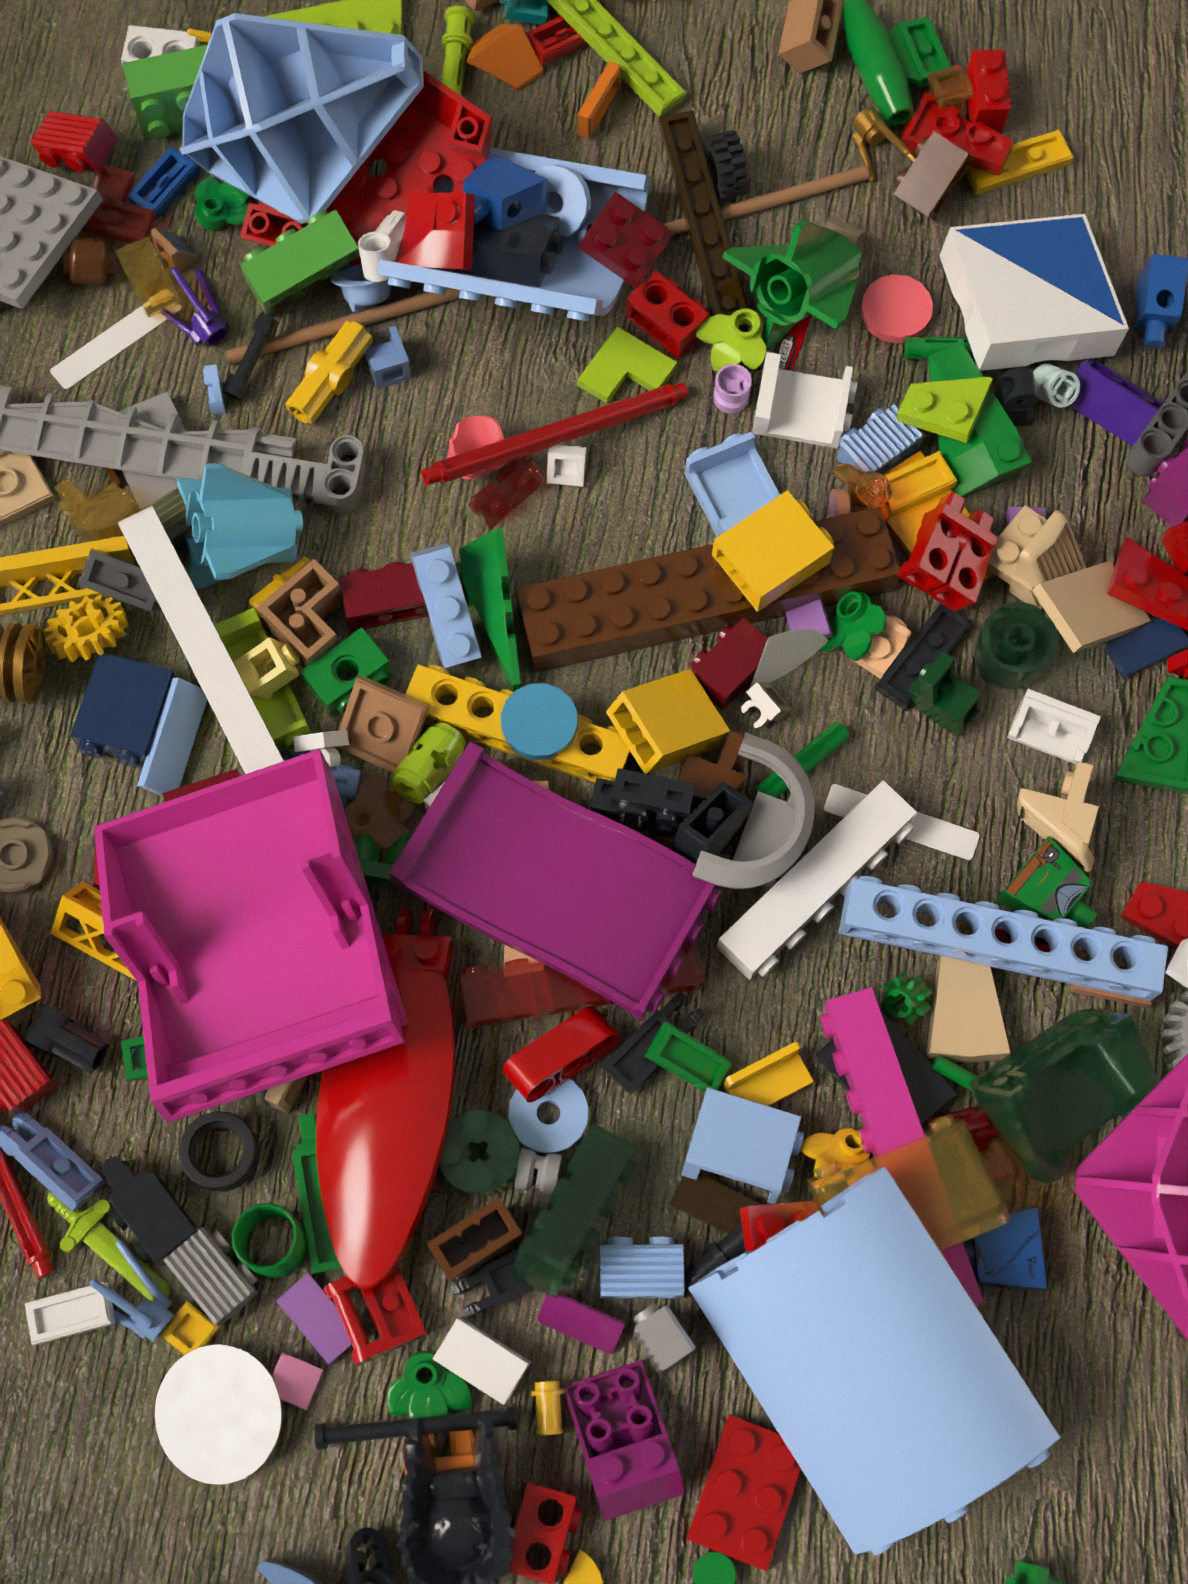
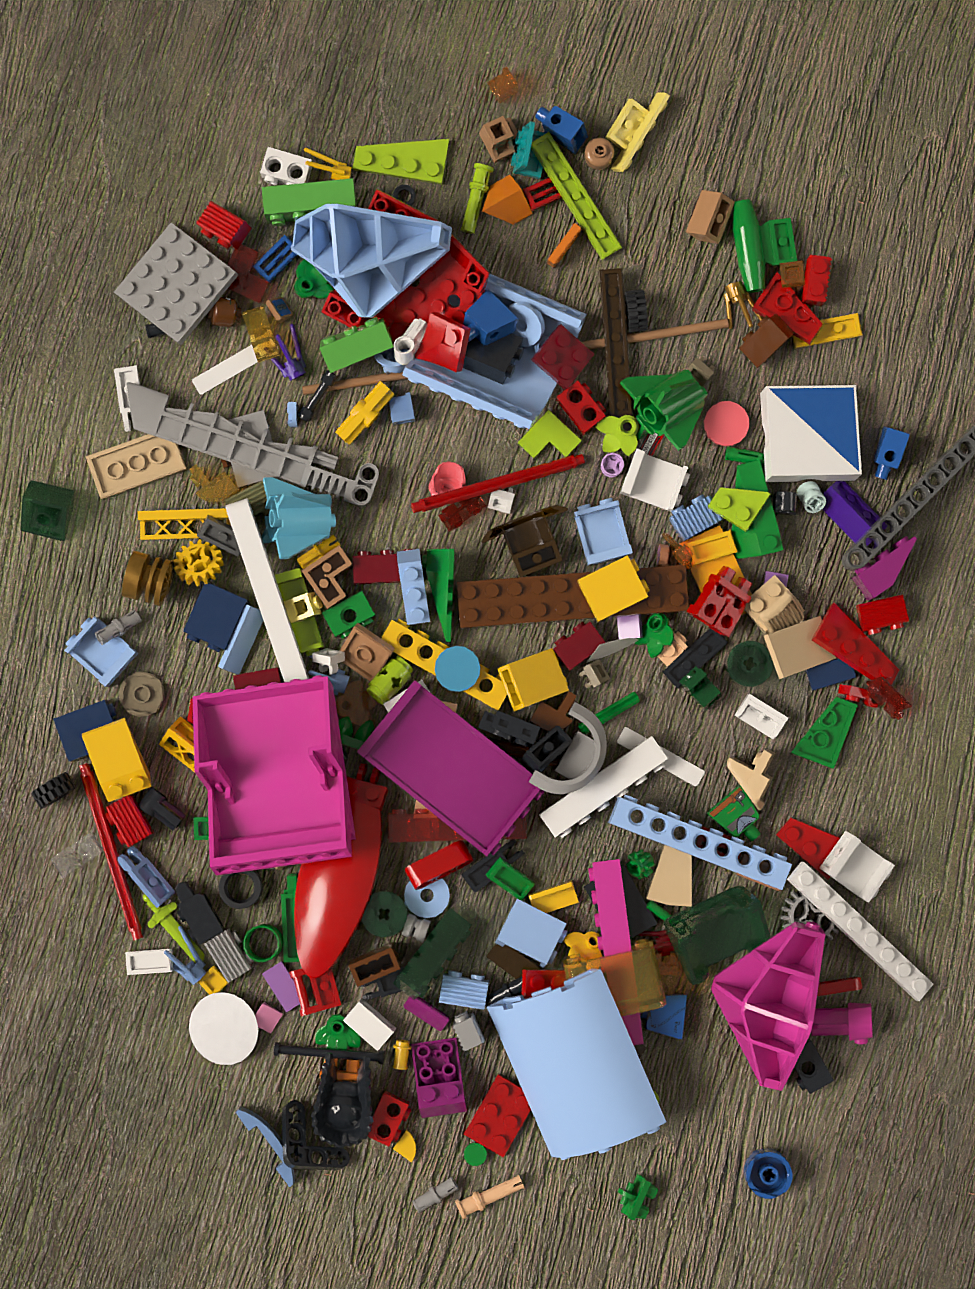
camera: 15 degrees right, 15 degrees up
(624, 512) = (530, 540): none -> dark brown piece

